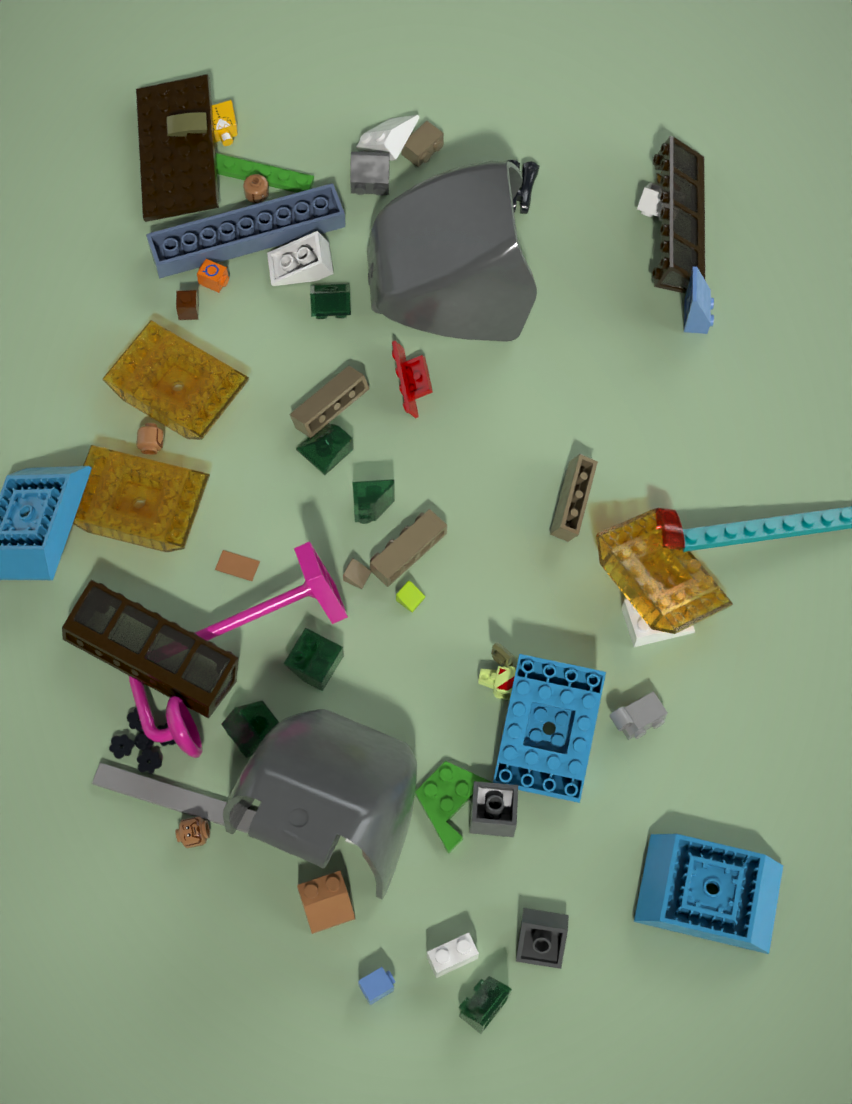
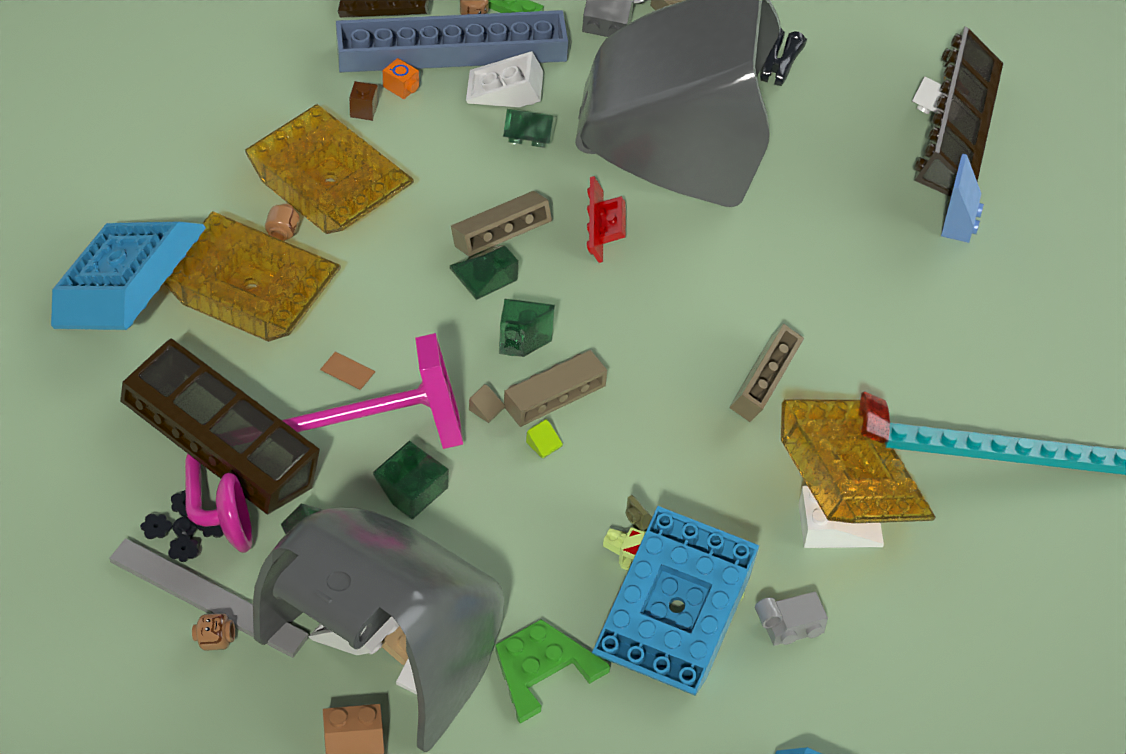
camera: 10 degrees right, 15 degrees down
(494, 809) = (586, 680): dark grey slope -> none

